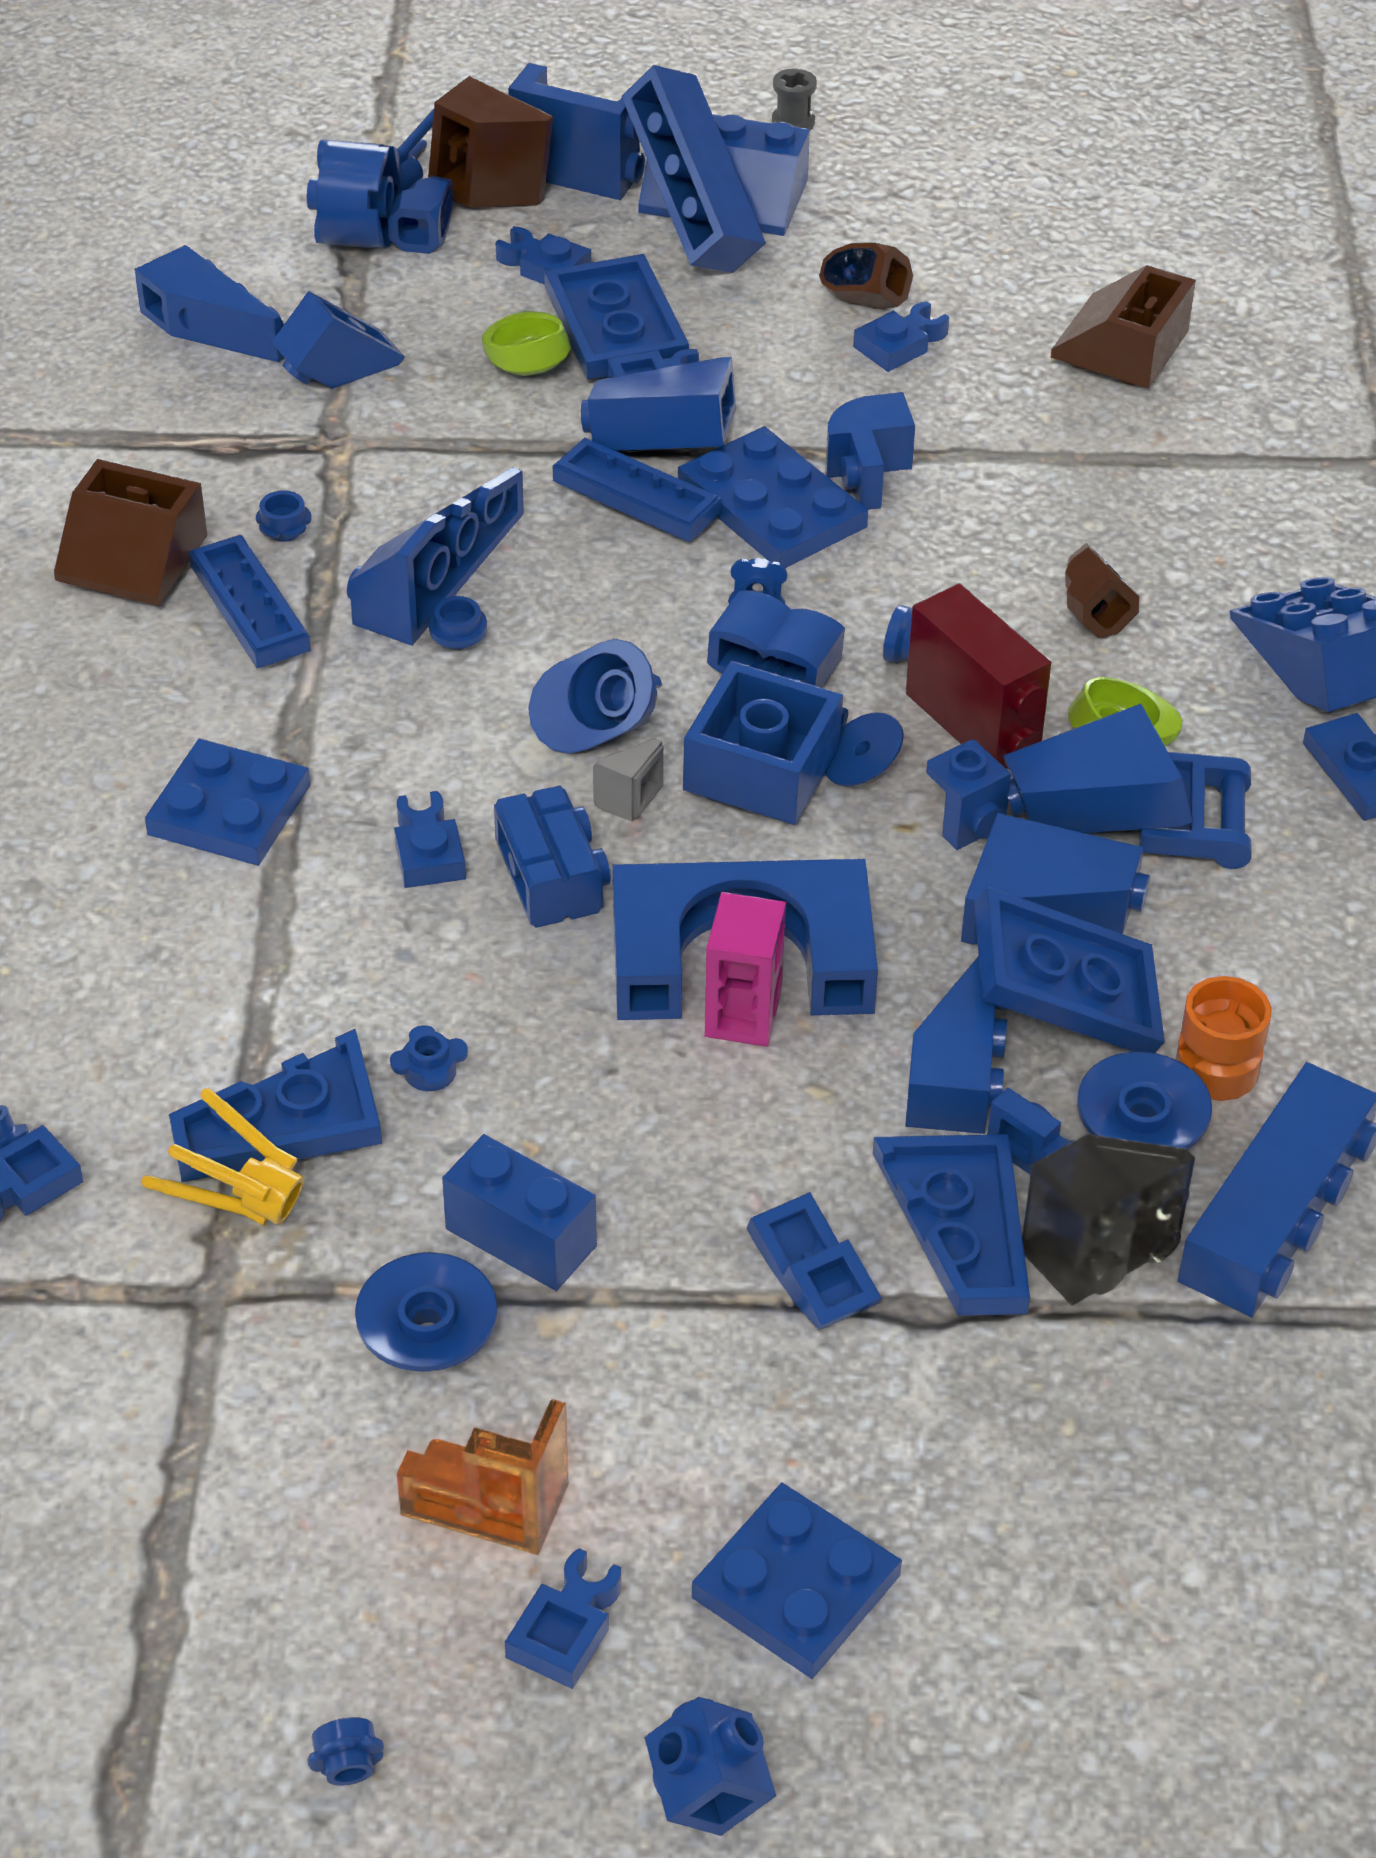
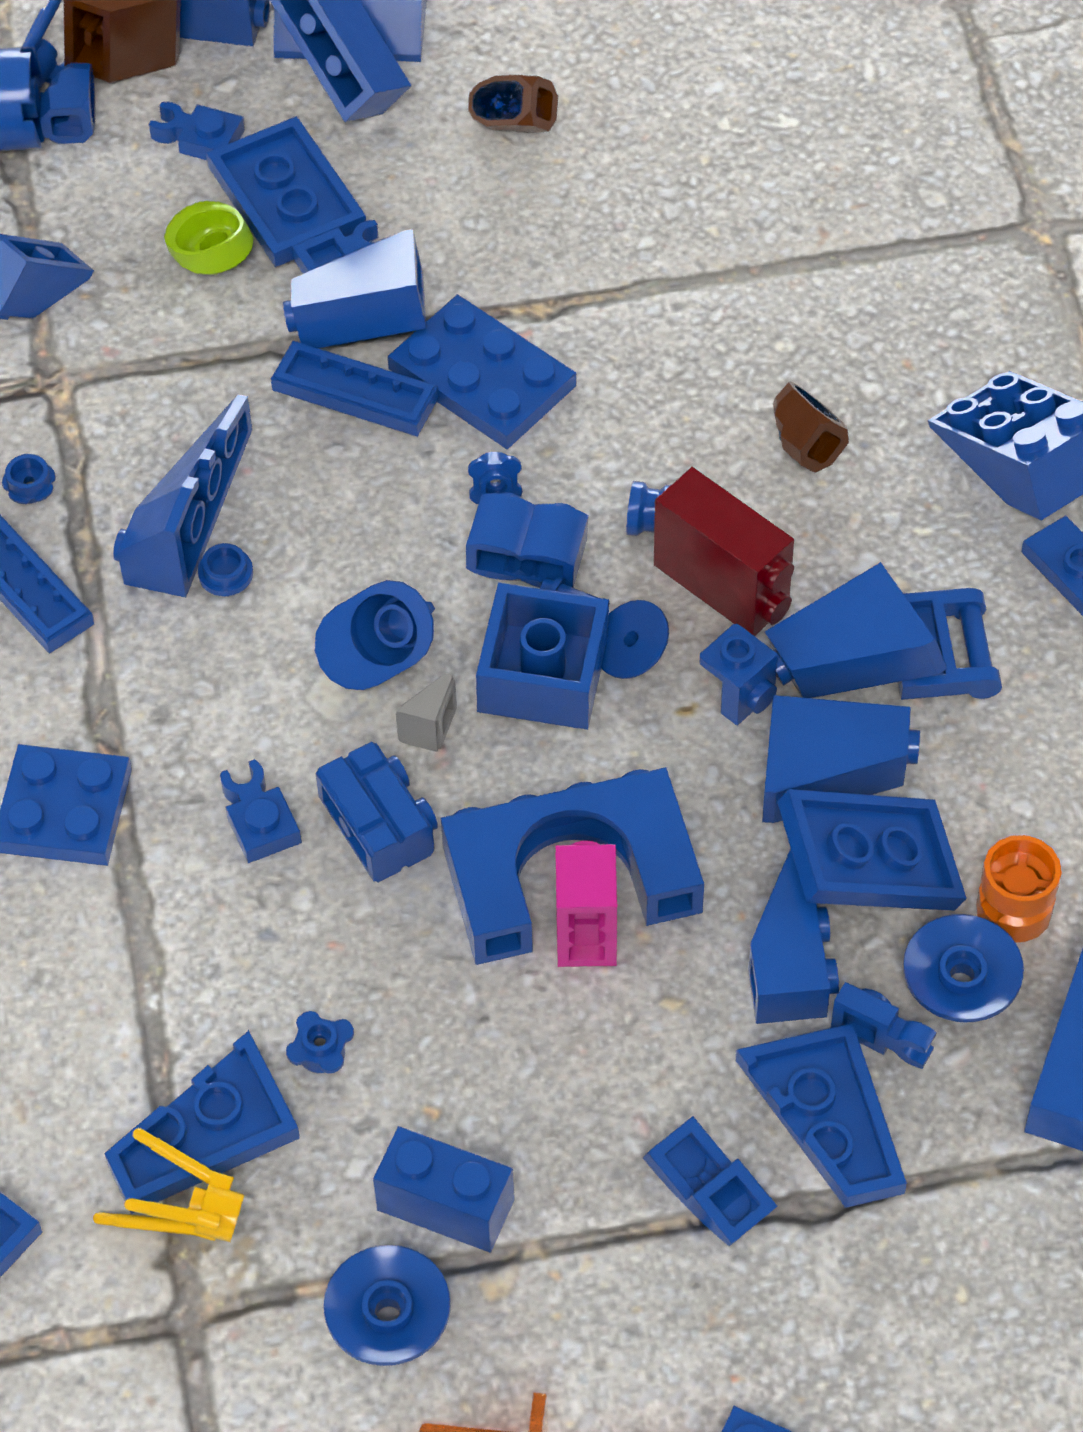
camera: 10 degrees left, 10 degrees up
(868, 439) = (557, 295): blue brick -> none
(899, 339) = (557, 168): blue plate -> none
(1104, 1211) = (954, 1091): clear smoke slope -> none
(1111, 695) = (853, 548): lime hat -> none
(1130, 326) = (771, 121): reddish brown slope -> none

